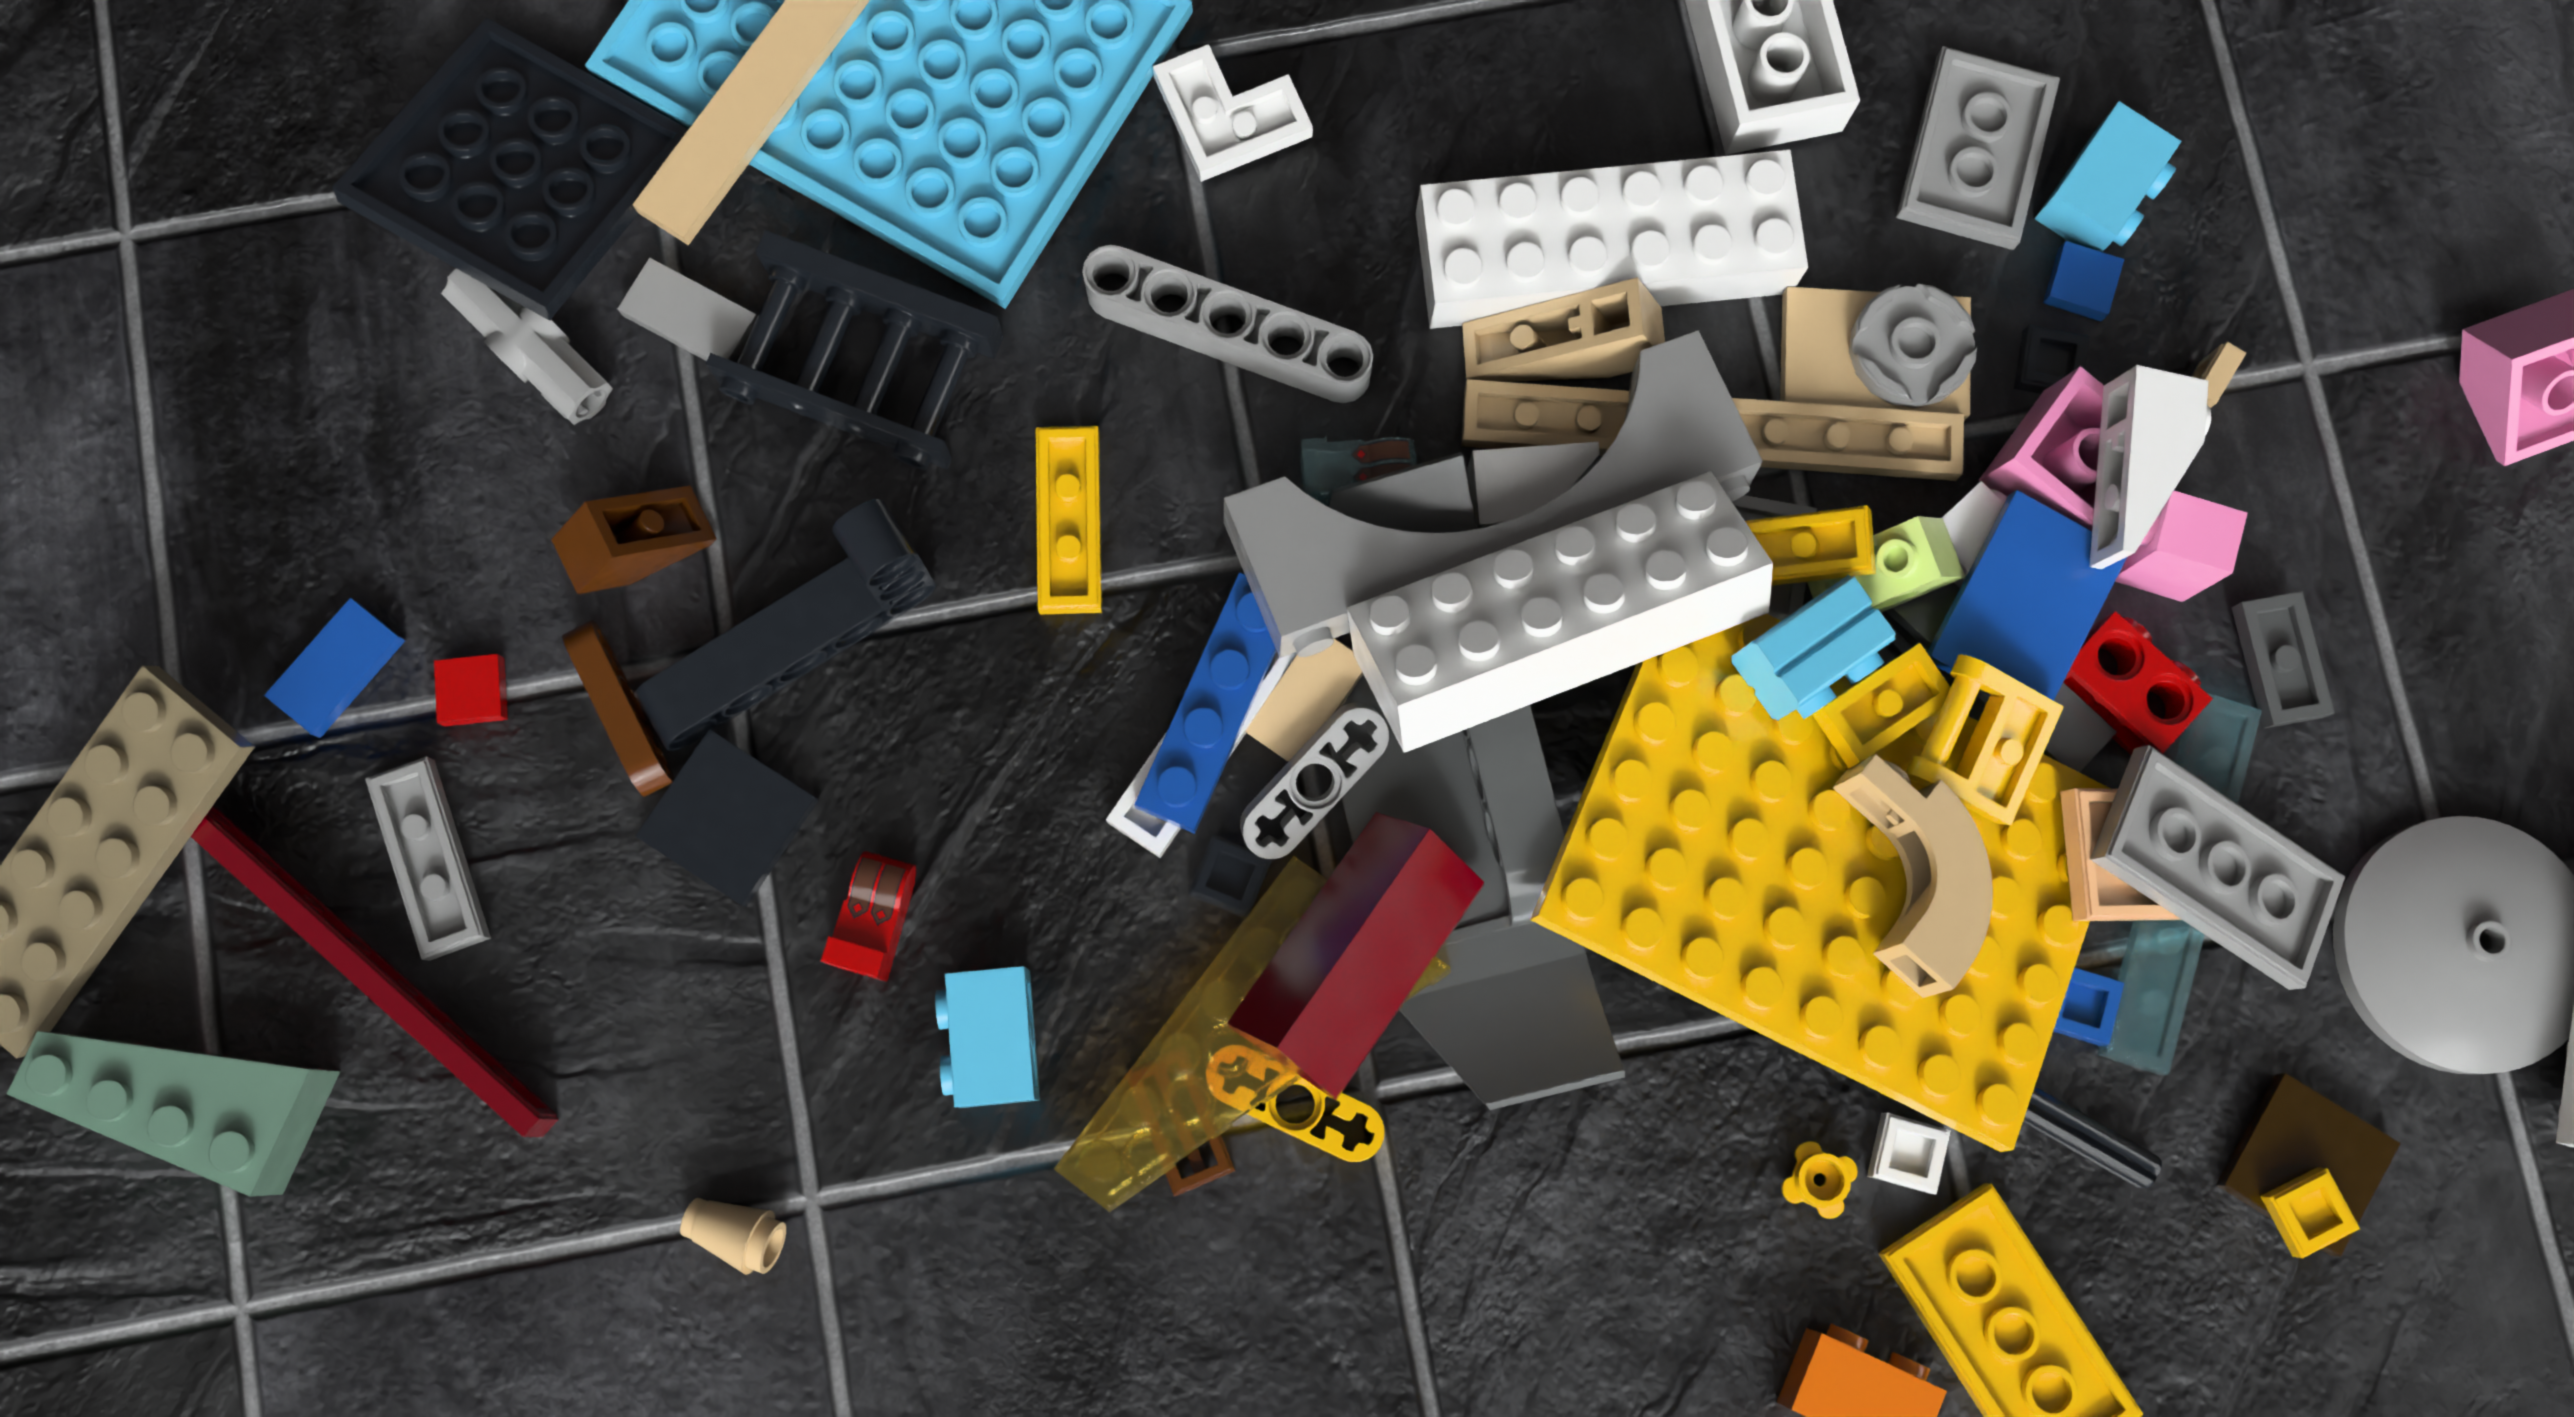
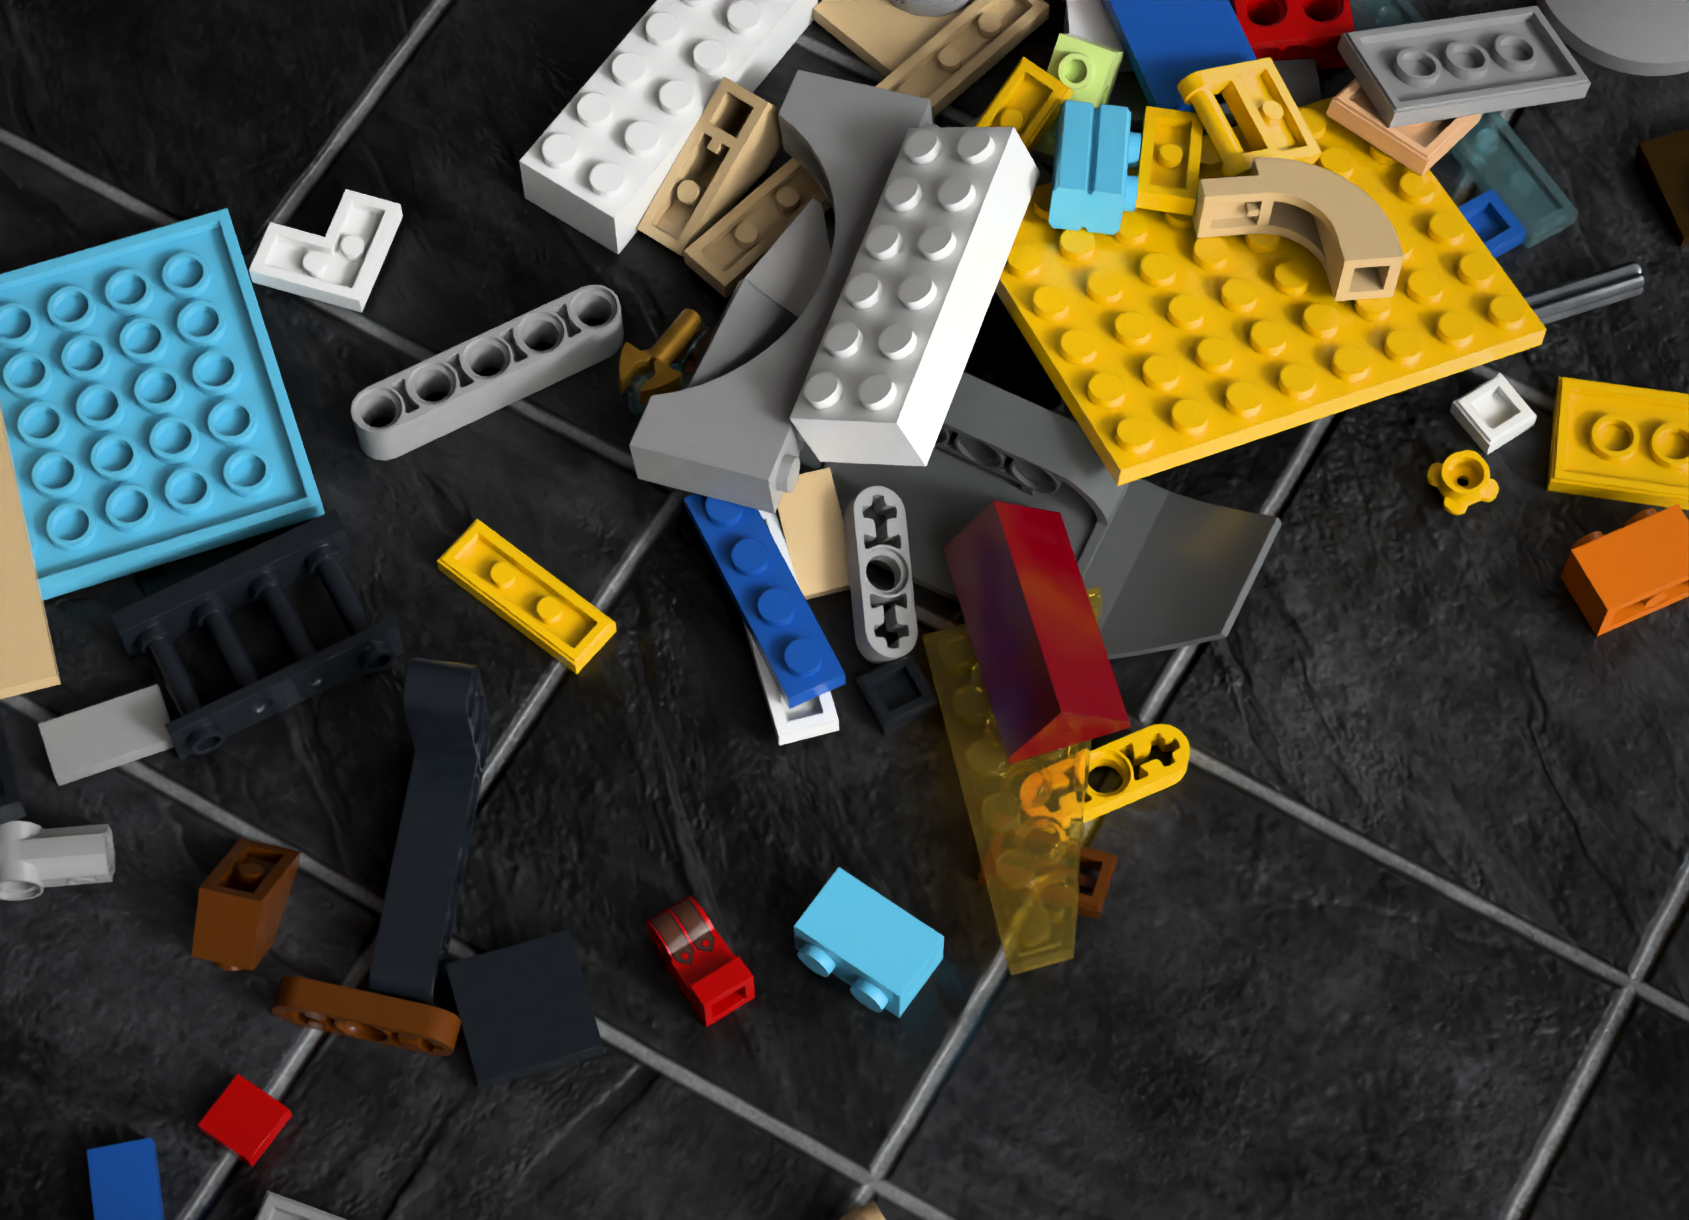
camera: 45 degrees left, 15 degrees down
(1340, 447) = (658, 358): none -> pearl gold bar

